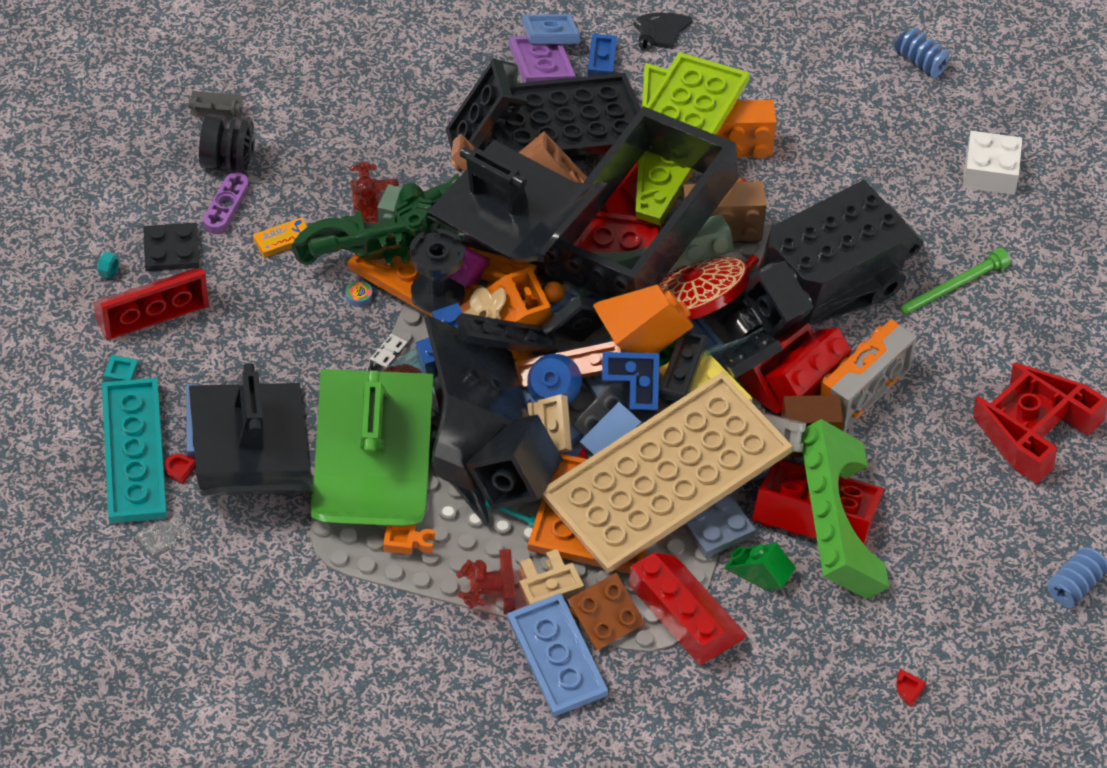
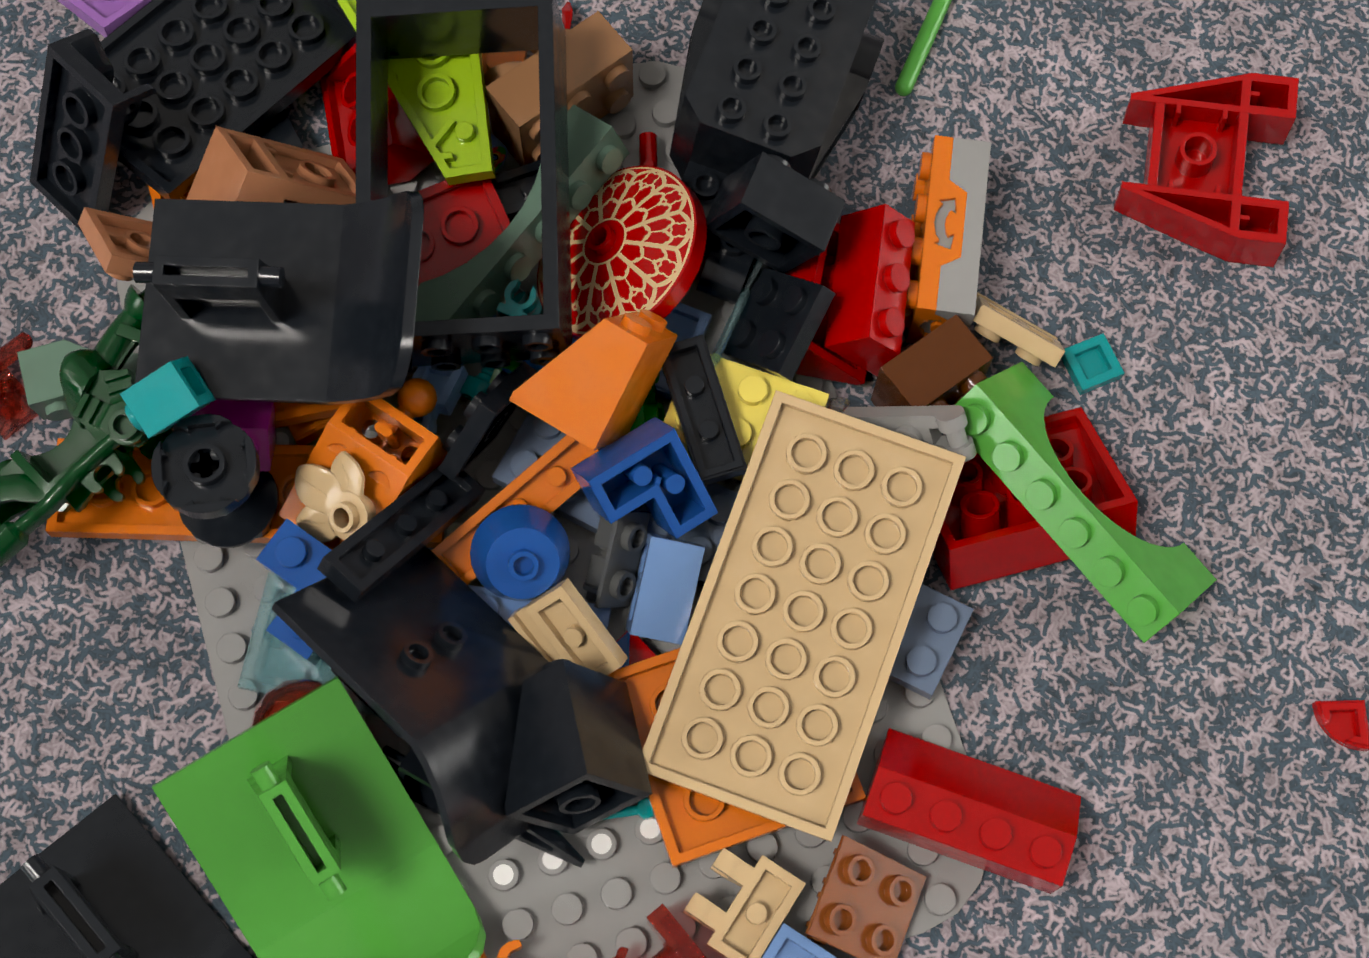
camera: 35 degrees left, 20 degrees up
(359, 293) = (96, 565): tile -> none
(386, 350) = (217, 649): white piece -> none
(440, 214) = (166, 397): none -> teal brick
(761, 565) = (1016, 662): green slope -> none
(876, 439) = (1032, 341): none -> tan plate
(904, 472) = (1092, 364): none -> teal tile

